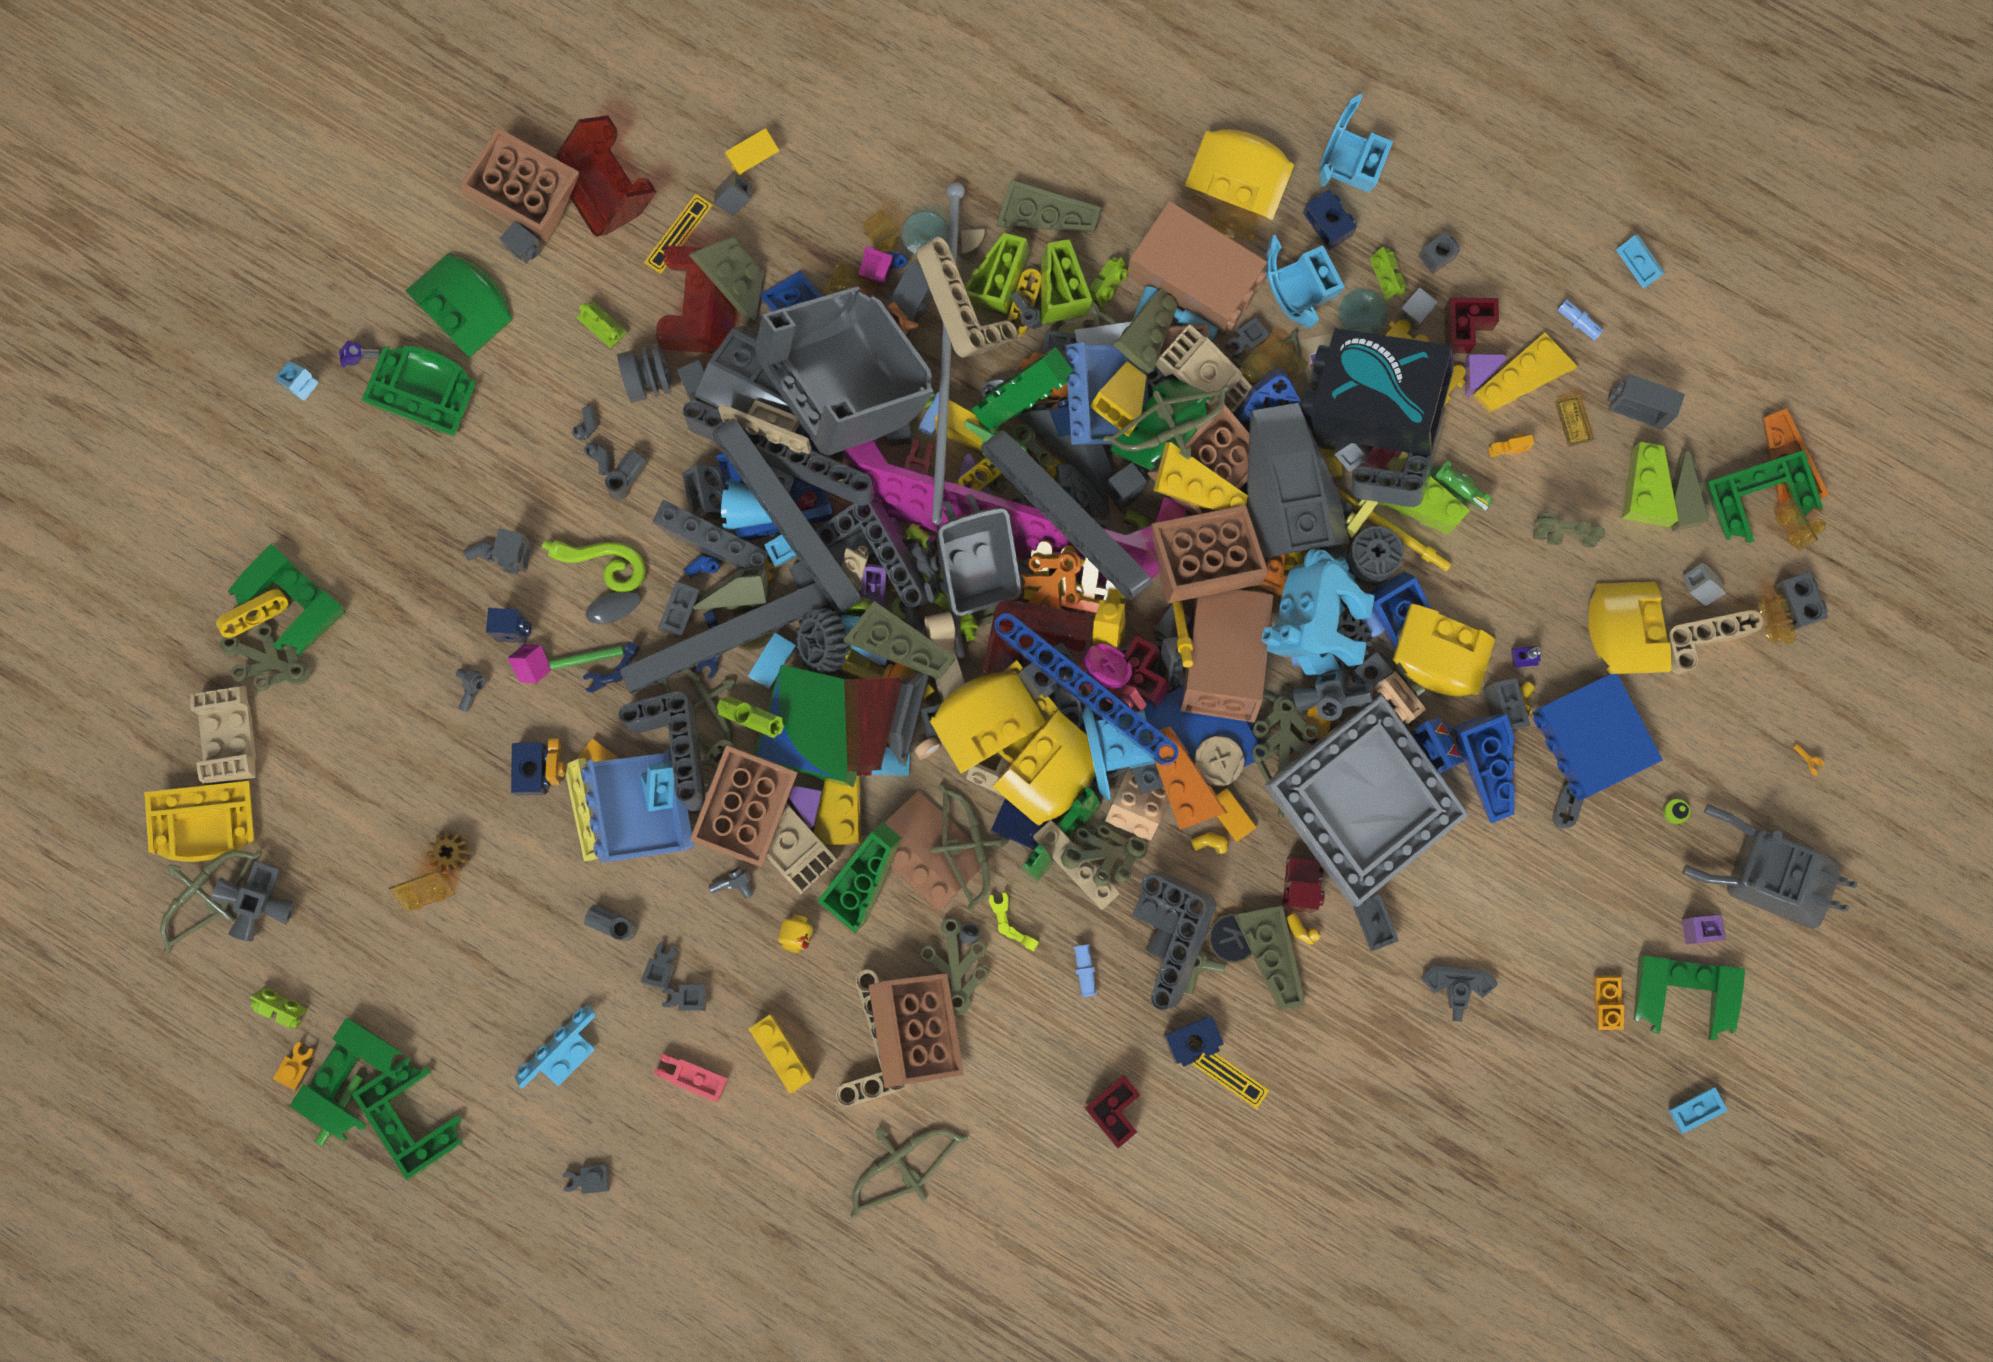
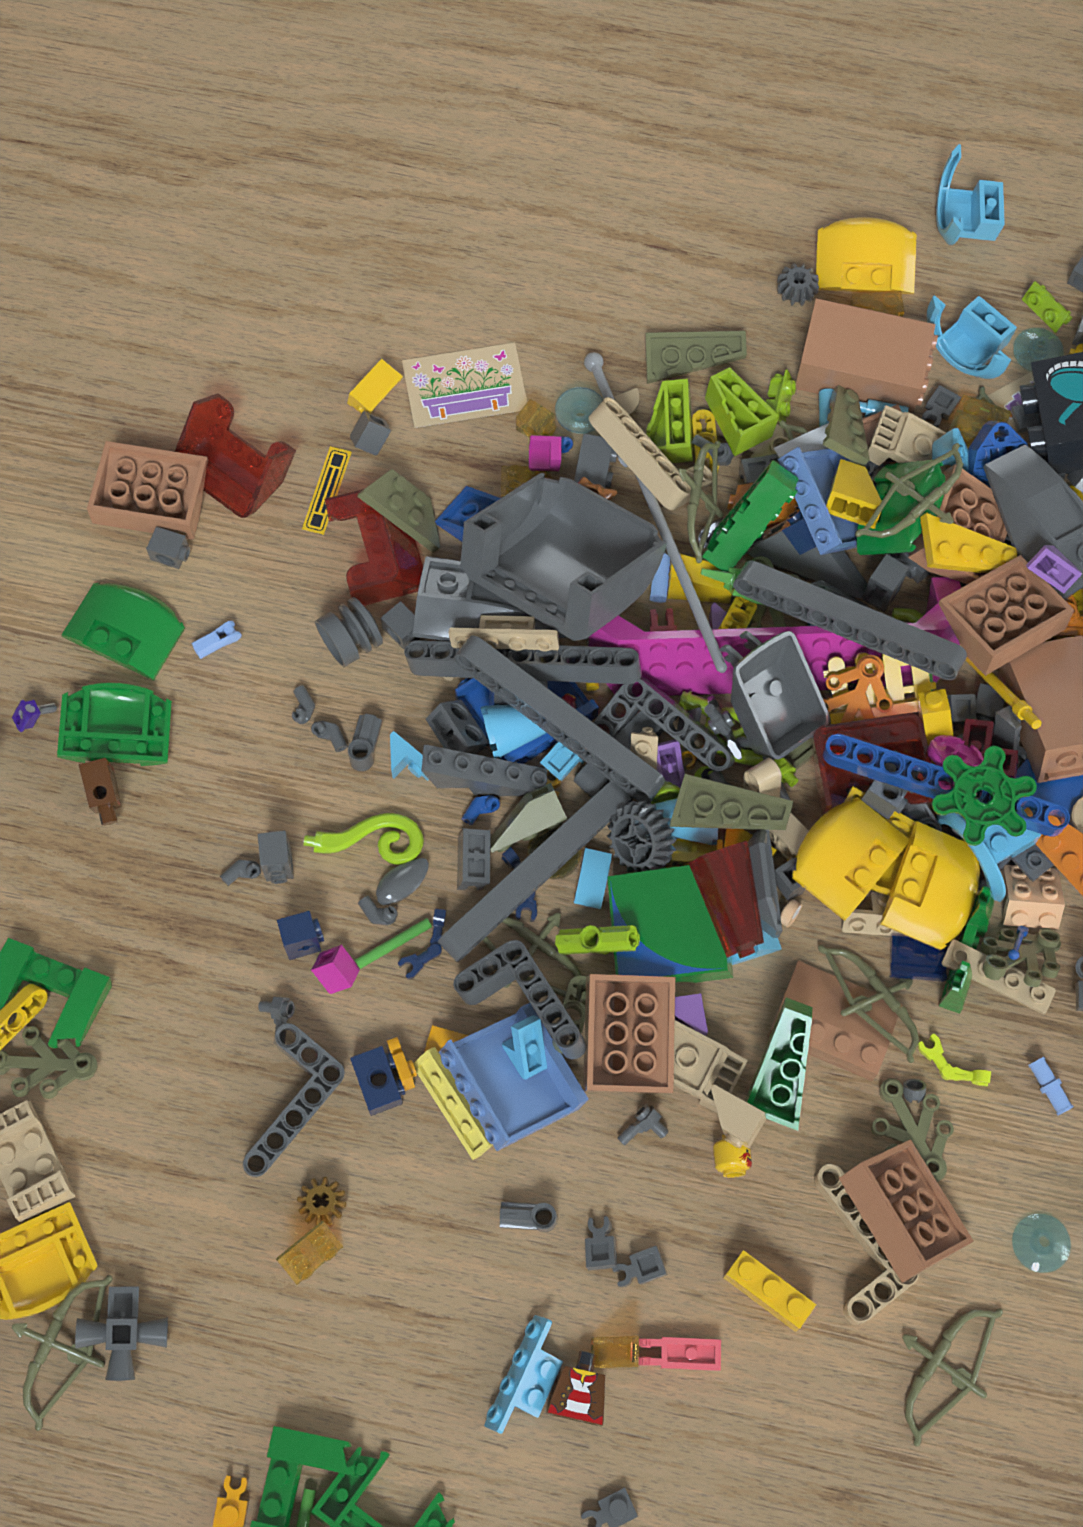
camera: 20 degrees left, 10 degrees down
(268, 1001) = (176, 1442): lime hinge -> none
(389, 433) = (98, 779): none -> reddish brown torso
(459, 765) = (299, 1103): none -> dark grey beam
(529, 340) = (212, 642): none -> light blue bar
(583, 629) = (376, 915): none -> dark grey arm
(597, 1079) = (580, 1392): none -> torso
(600, 324) = (281, 602): lime hinge -> none
(639, 1058) = (616, 1352): none -> clear yellow slope
(649, 497) = (404, 754): none -> medium azure slope
(804, 906) = (737, 1118): none -> tan slope
(835, 174) = (464, 385): none -> sticker
(839, 815) = (728, 1013): yellow wing -> none
(899, 436) = (636, 610): dark grey slope -> none
(1000, 362) = (697, 493): none -> olive piece
(1009, 1095) = (1029, 1250): none -> clear light blue dish
(1116, 833) = (1022, 931): none -> blue hinge
(1121, 699) = (987, 777): none -> green plate
(1141, 620) = (962, 707): none -> dark grey brick
(1168, 169) = (797, 284): none -> dark grey gear
(1237, 391) = (944, 445): none -> medium azure slope
(1267, 527) = (1054, 568): none -> medium lavender slope
(1330, 232) = (957, 275): dark blue brick -> none

